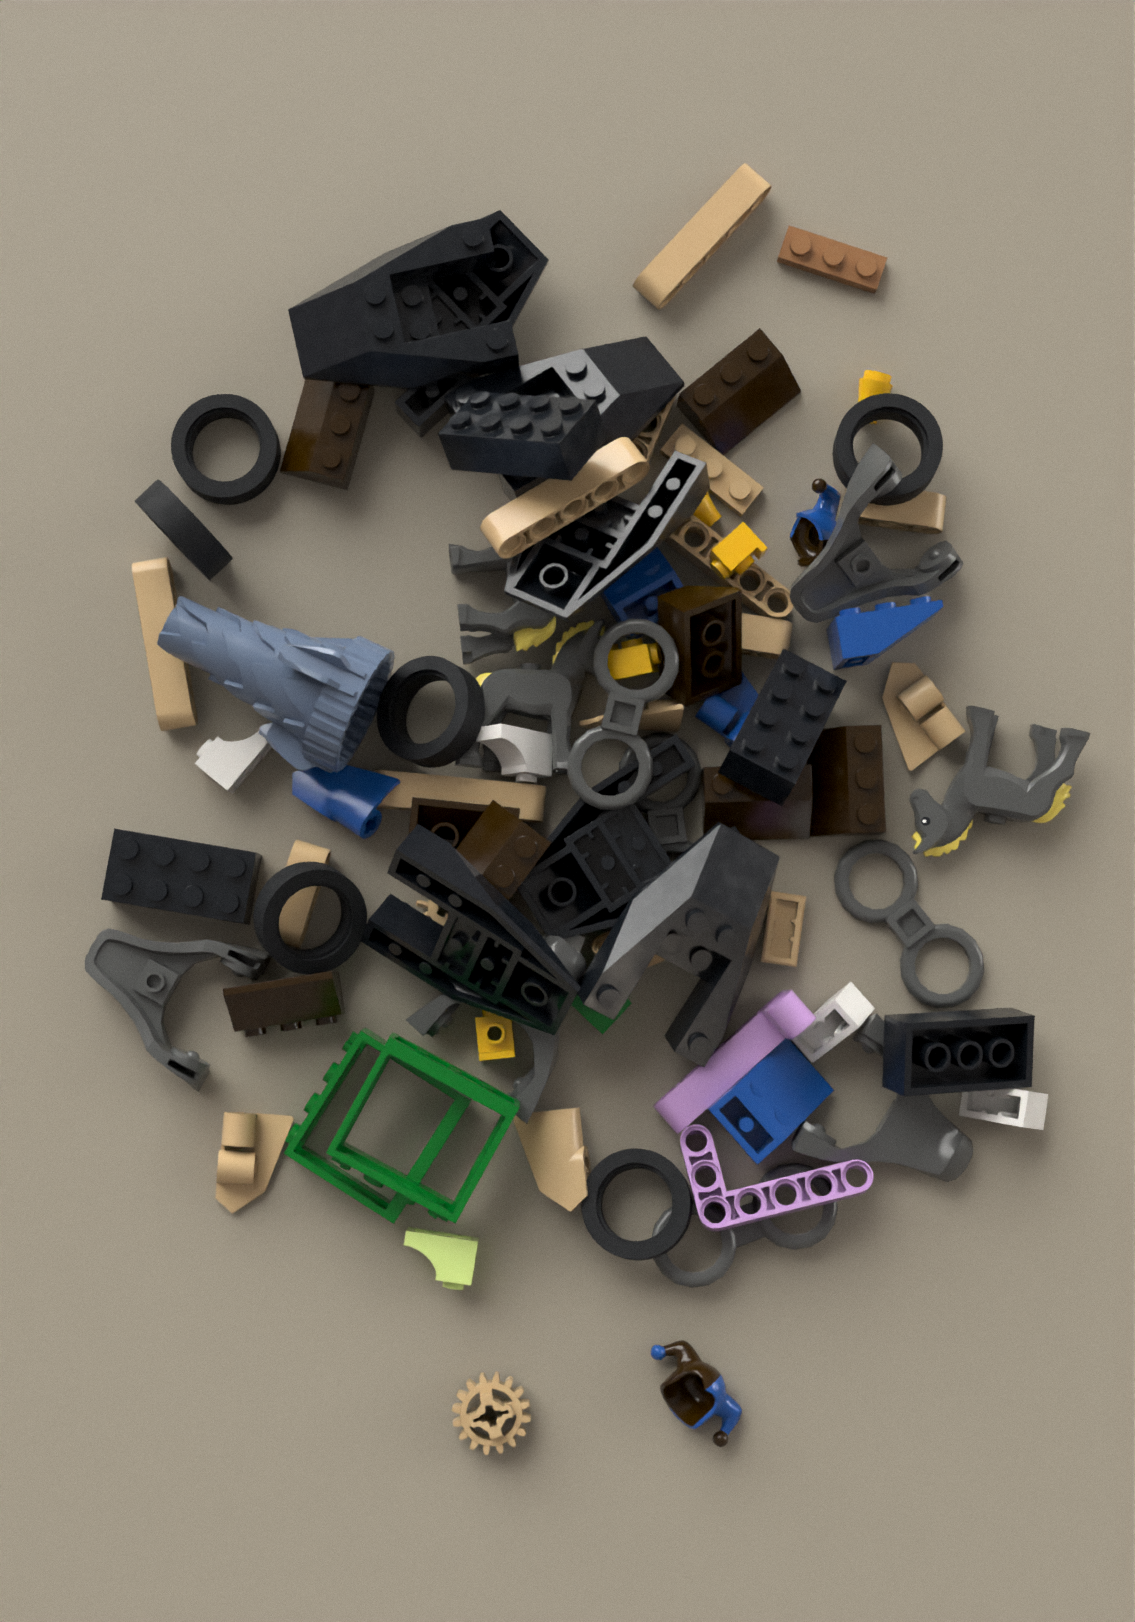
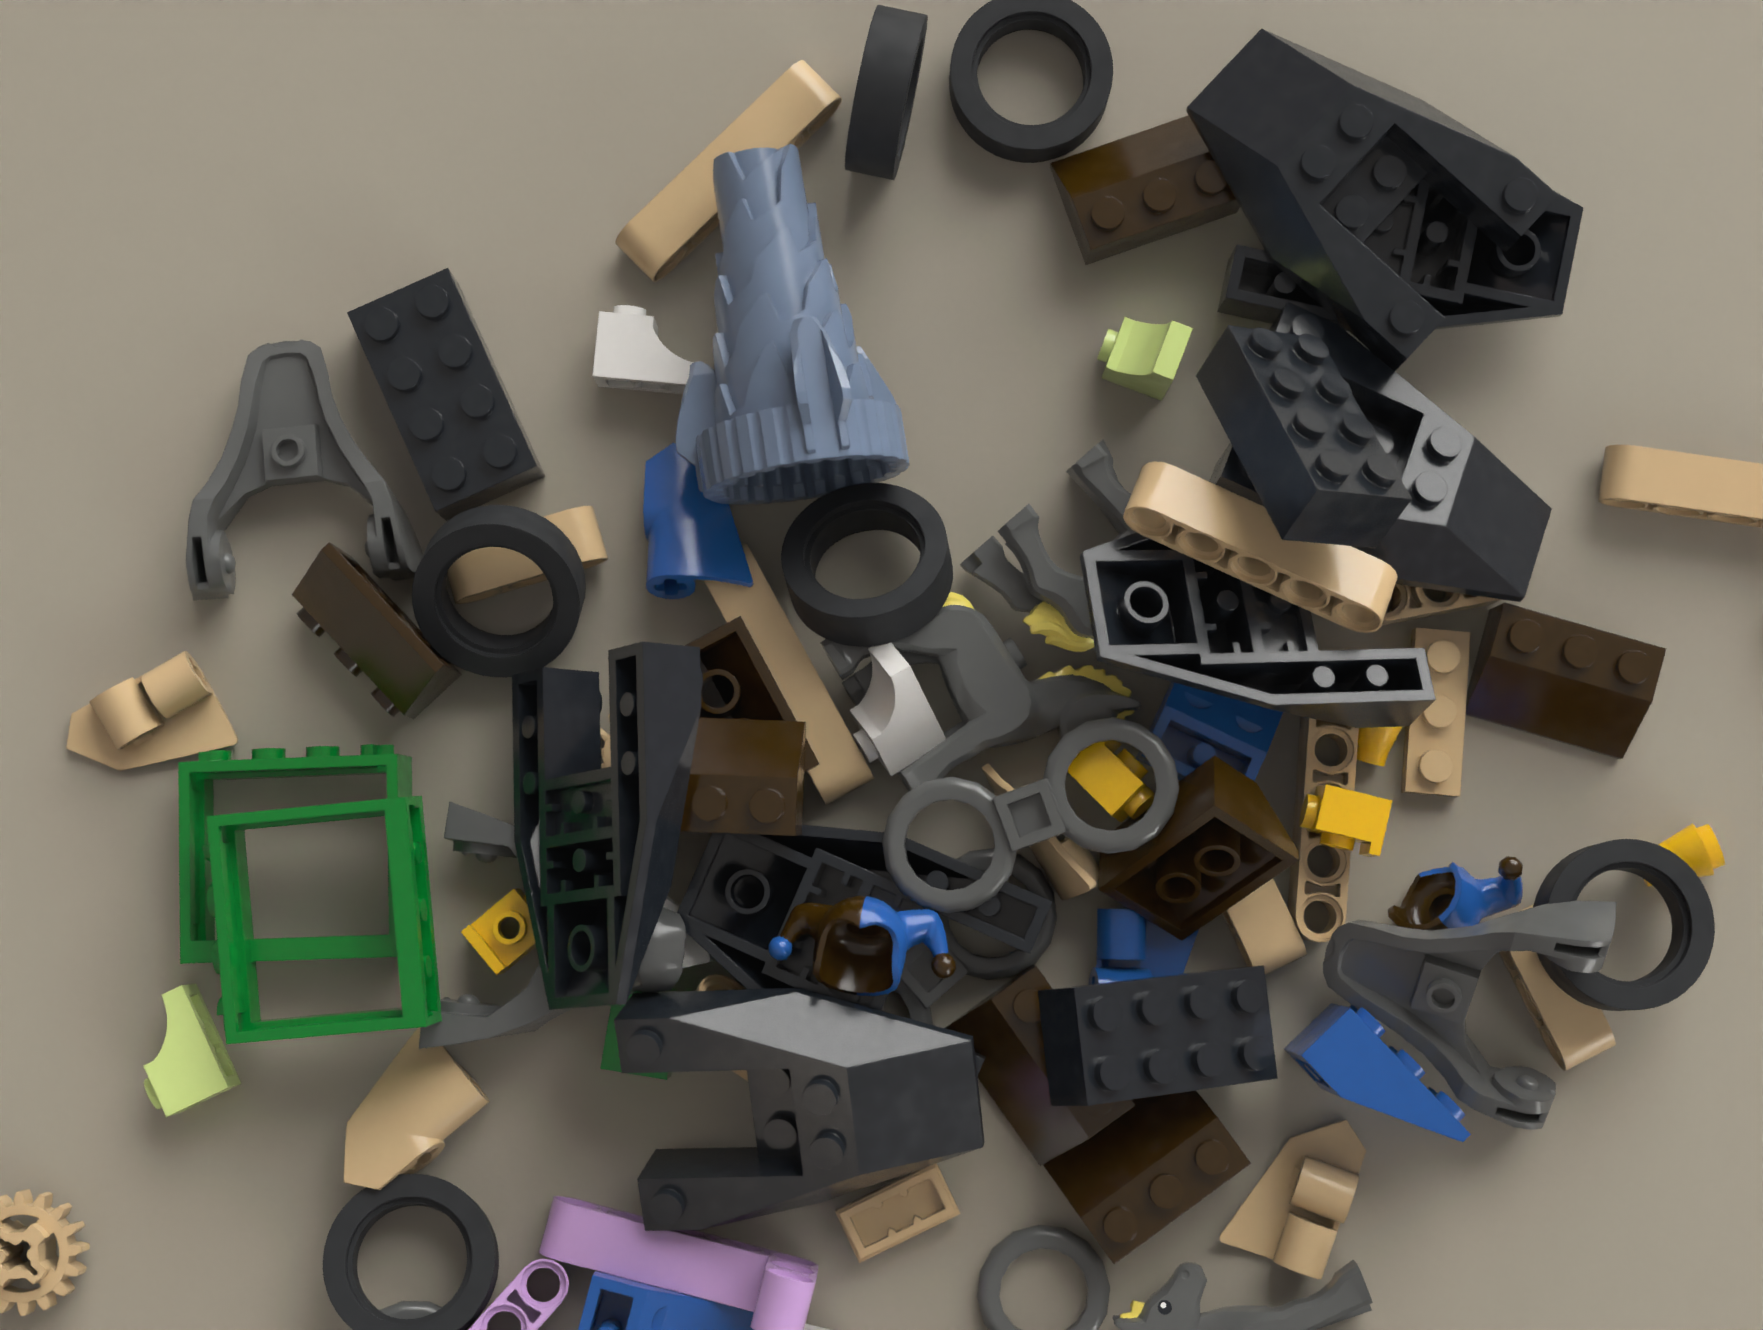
camera: 60 degrees right, 0 degrees up
(419, 491) = (1144, 355): none -> yellowish green arch
(631, 846) = (863, 943): none -> dark brown piece

